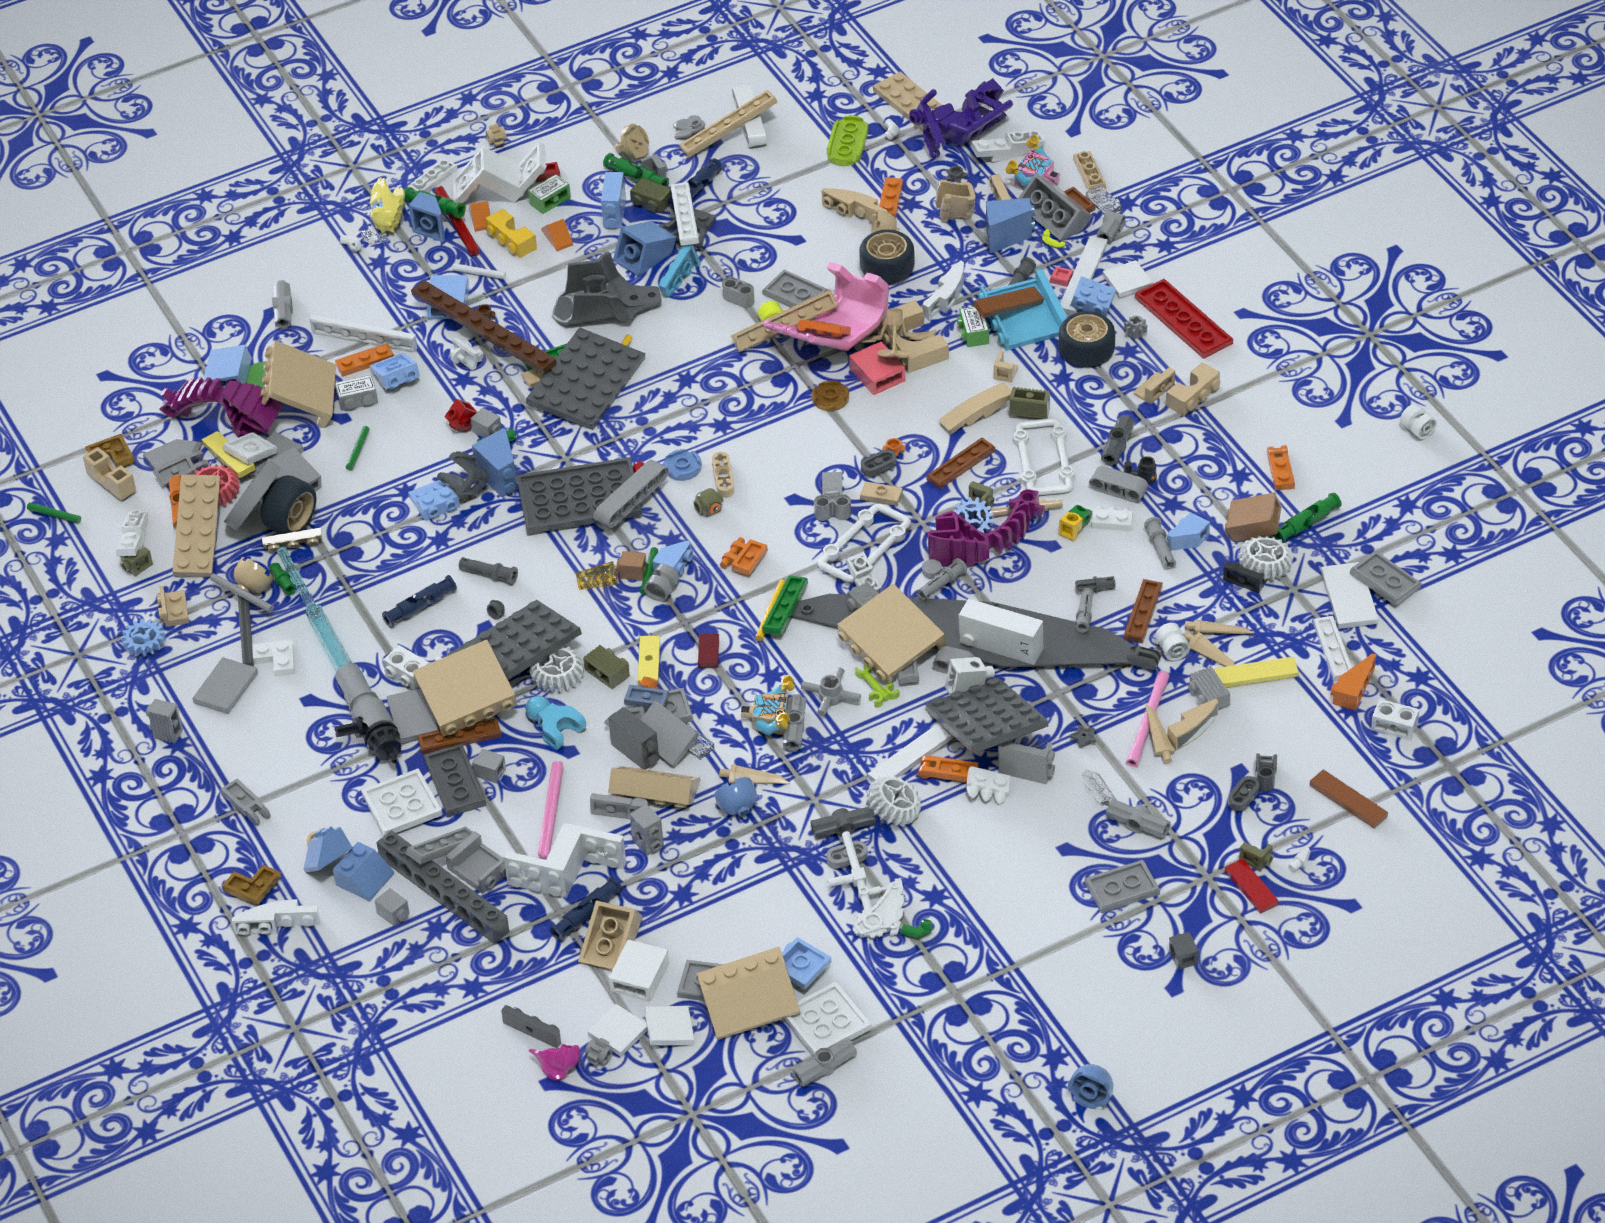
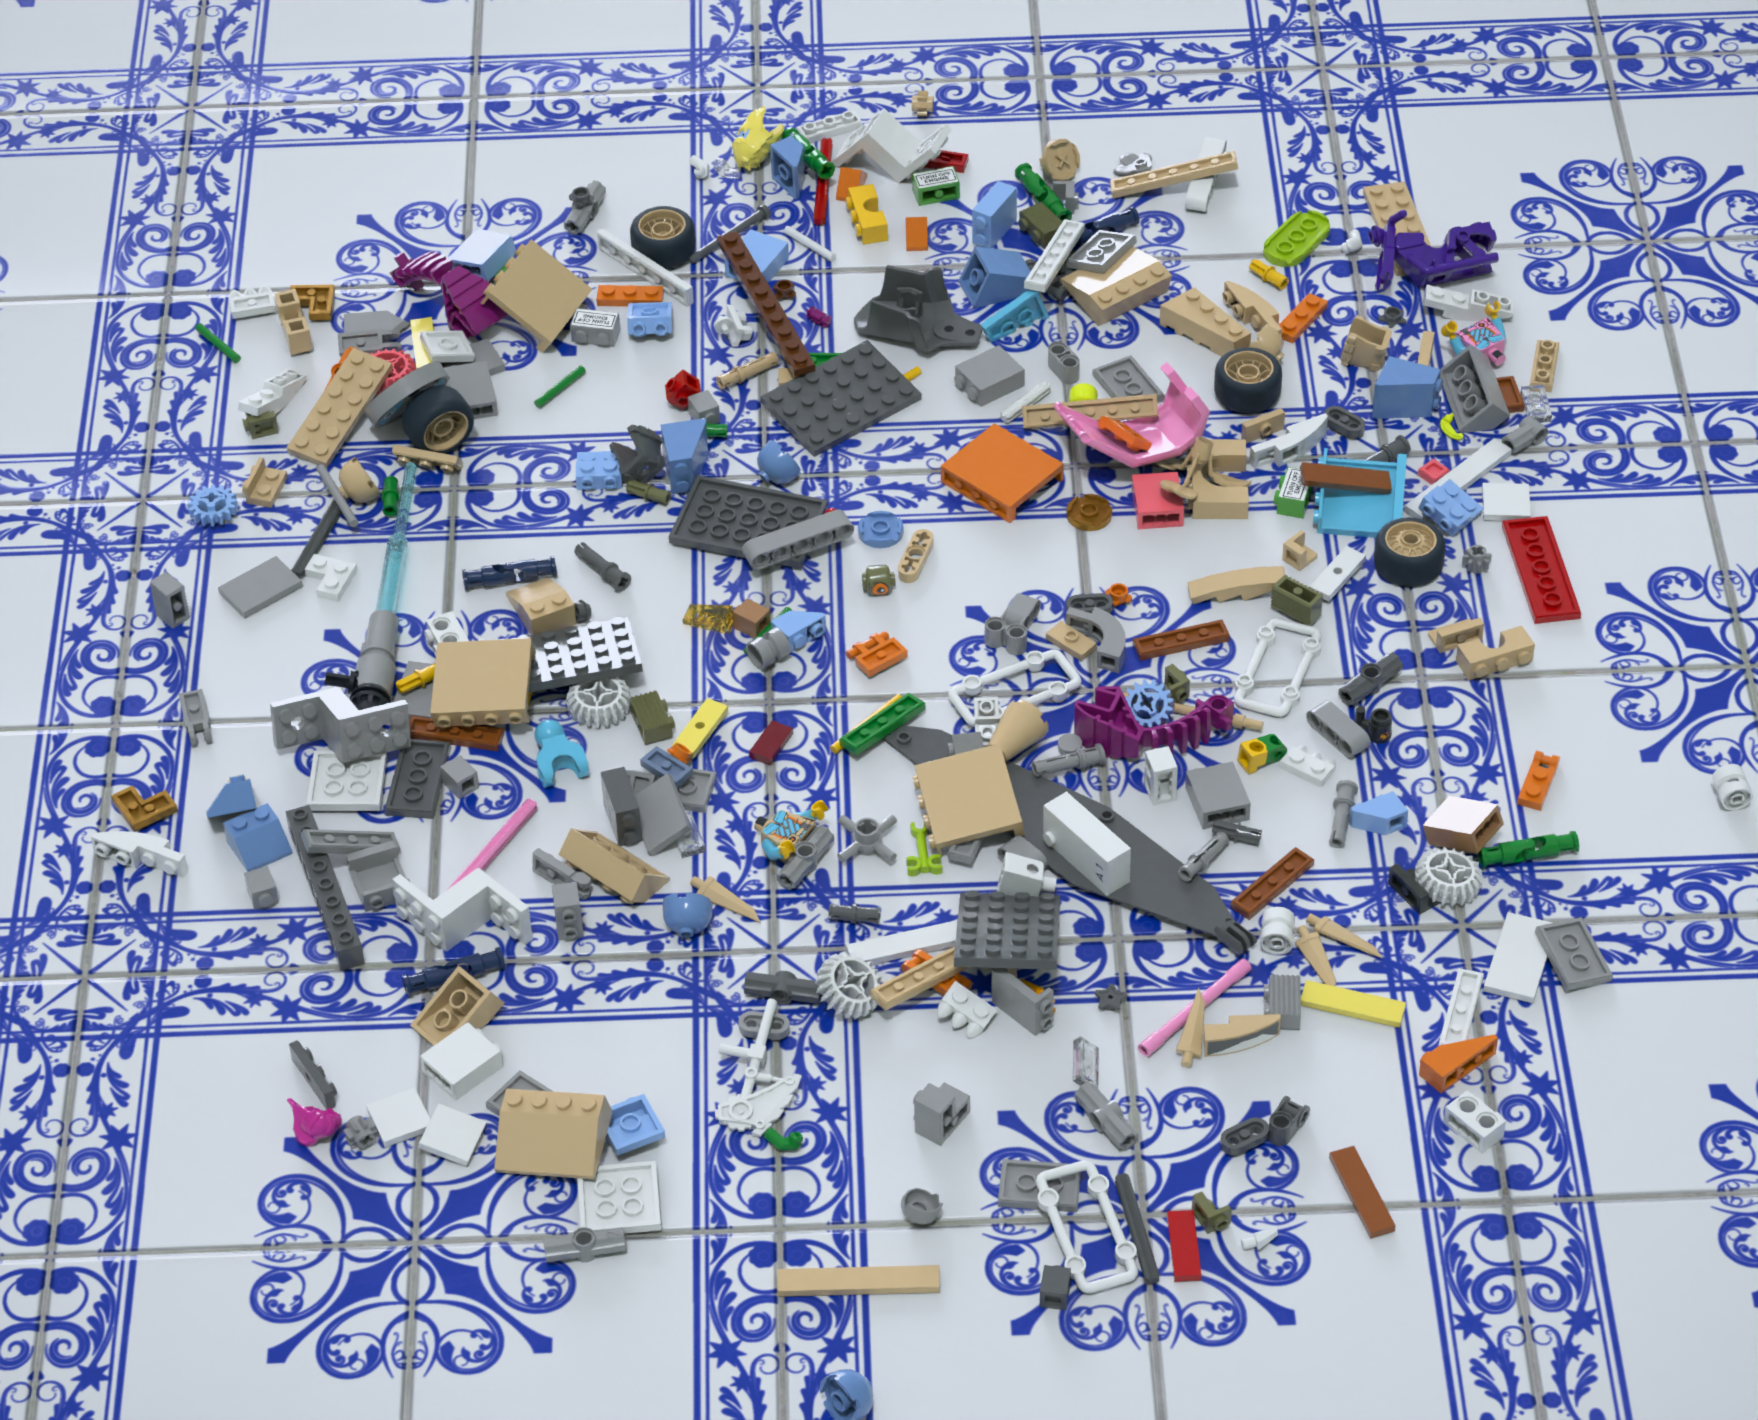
camera: 25 degrees right, 0 degrees up
(60, 471) = (251, 302): none -> white plate
(279, 296) = (581, 196): none -> dark grey plate
(365, 302) = (664, 235): none -> black wheel
(375, 761) = (340, 724): none -> light grey bracket
(407, 704) = (418, 678): none -> yellow axle
(426, 260) = (762, 212): none -> dark grey bar
(463, 616) = (543, 606): none -> tan slope
(485, 501) = (649, 492): none -> olive axle
(494, 388) = (739, 374): none -> tan pin
(525, 324) = (818, 317): none -> magenta piece
(573, 444) = (776, 465): none -> medium blue cylinder
(689, 321) = (989, 376): none -> light grey brick
(713, 199) = (1101, 251): none -> light grey tile
(727, 331) = (1029, 398): none -> white axle
(739, 218) = (1121, 288): none -> tan slope
(746, 389) = (1000, 471): none -> orange panel
(827, 226) = (1204, 322): none -> tan wedge
(845, 174) = (1269, 274): none -> yellow axle
(858, 749) = (854, 913): none -> dark grey pin
(891, 567) = (1018, 728): none -> tan cone
(906, 477) = (1106, 631): none -> light grey arch
(917, 286) = (1263, 425): none -> tan plate
(942, 774) = (916, 980): none -> tan tile
(975, 262) = (1345, 422): none -> dark grey plate
(1018, 564) = (1160, 775): none -> white brick
(1020, 864) = (939, 1111): none -> light grey brick
(1038, 1005) = (858, 1280): none -> tan tile
(1043, 371) = (1338, 572): none -> white tile
(1051, 934) = (921, 1206): none -> light grey hair
(1064, 563) = (1217, 794): none -> light grey brick
(1168, 869) = (1098, 1188): none -> white bar
(1211, 887) = (1137, 1228): none -> dark grey axle

